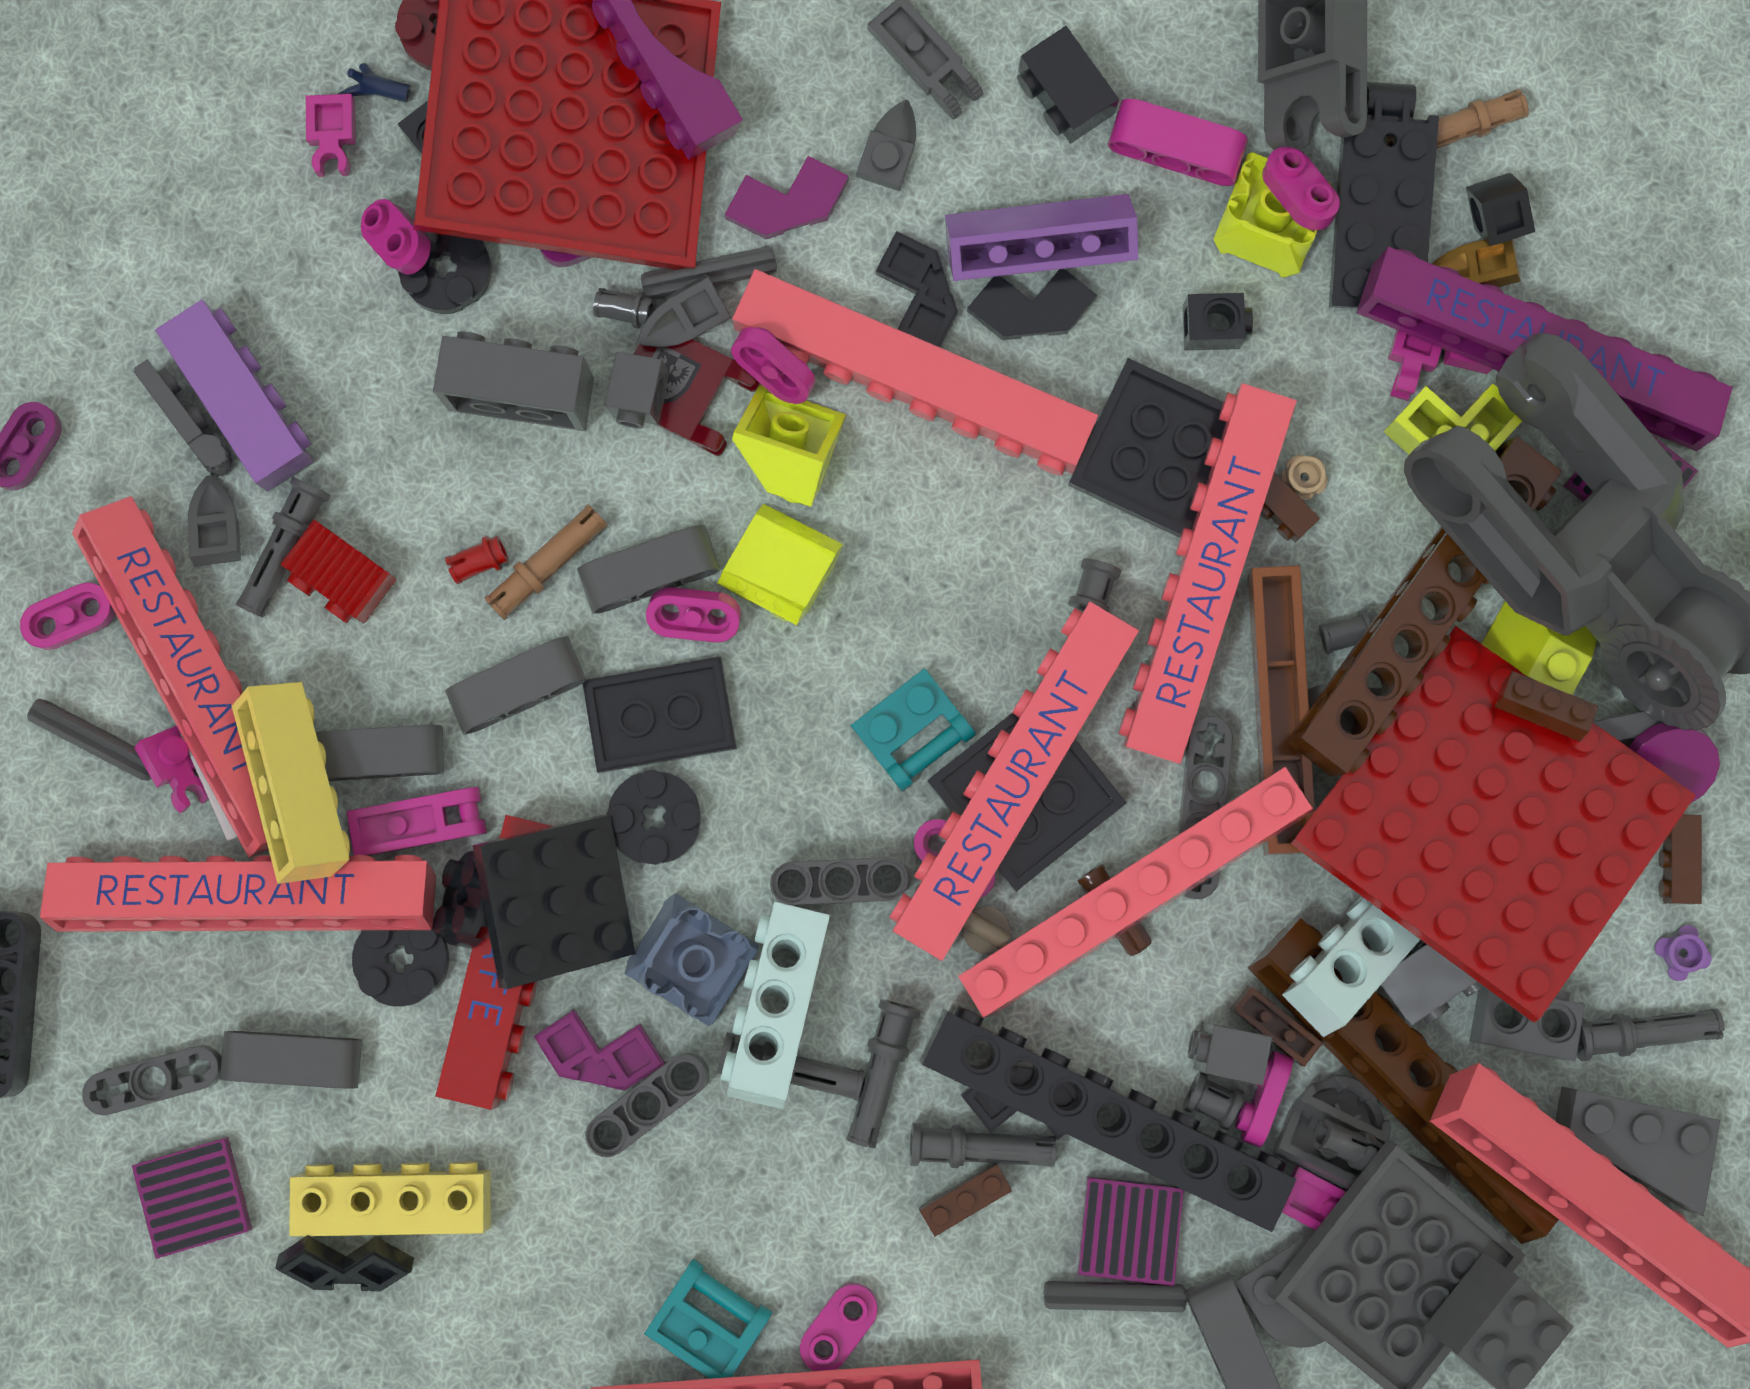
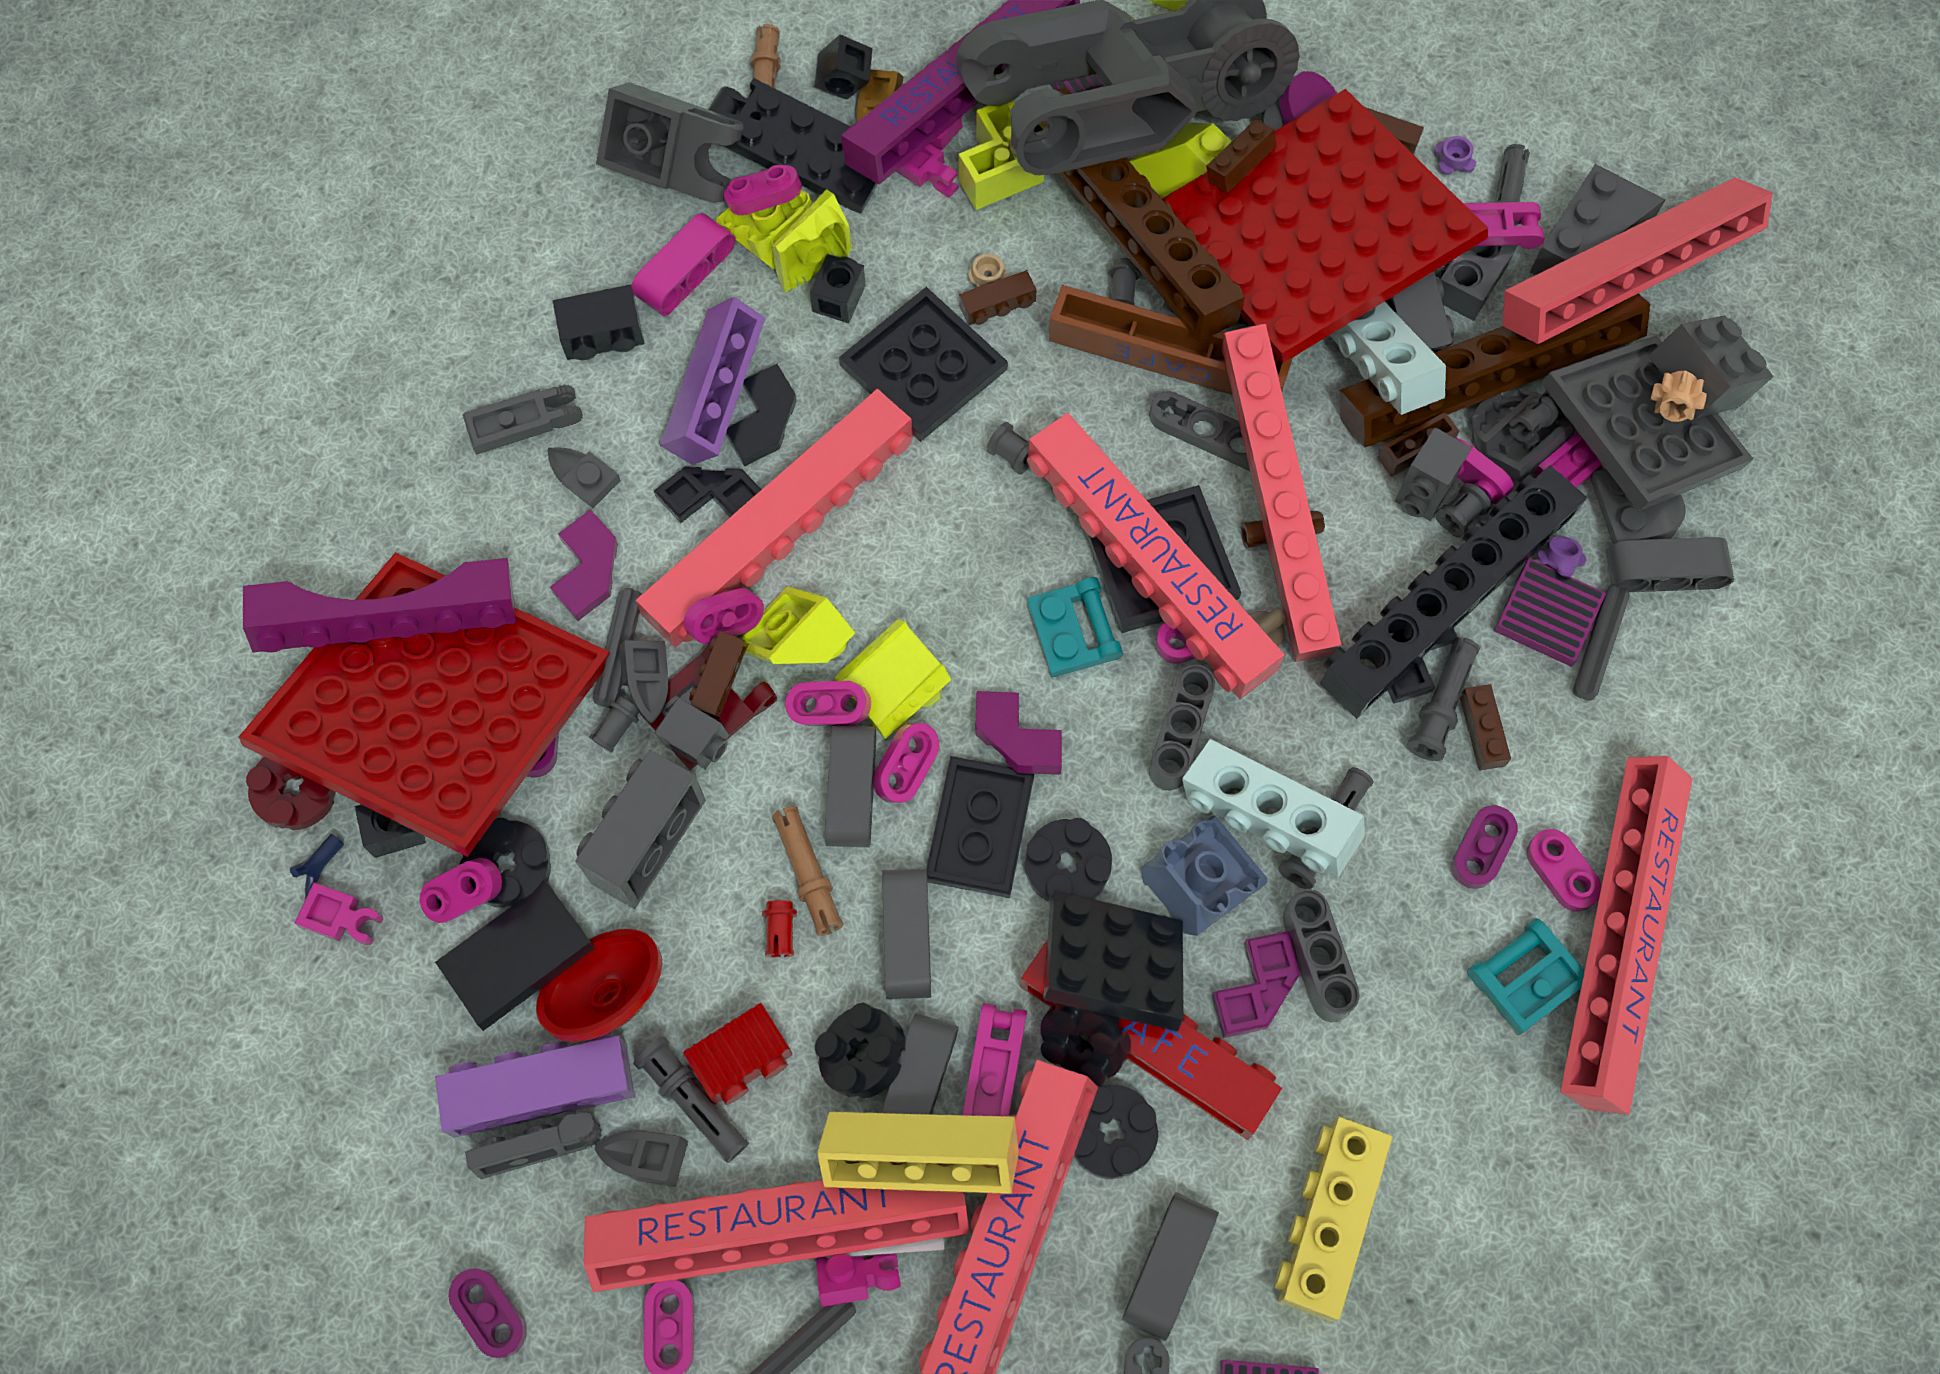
camera: 70 degrees left, 15 degrees down
(321, 1267) = (1390, 1259): black tile -> none
(347, 412) = (601, 987): none -> red dish
(354, 317) = (514, 956): none -> black tile
(375, 666) = (842, 1039): none -> black plate
(709, 387) = (718, 673): none -> reddish brown piece
(724, 514) = (830, 703): none -> dark pink plate
(753, 727) = (1024, 749): none -> magenta tile
(829, 1243) = (1483, 849): none -> magenta plate
(887, 1051) = (1339, 742): dark grey pin -> none
(1208, 573) = (1040, 357): coral brick -> none
(1211, 1225) = (1562, 555): none -> medium lavender plate
(1251, 267) = (809, 240): none -> neon yellow slope
(1431, 1299) = (1678, 396): none -> light nougat gear
(1581, 1024) = (1500, 223): none -> dark pink plate

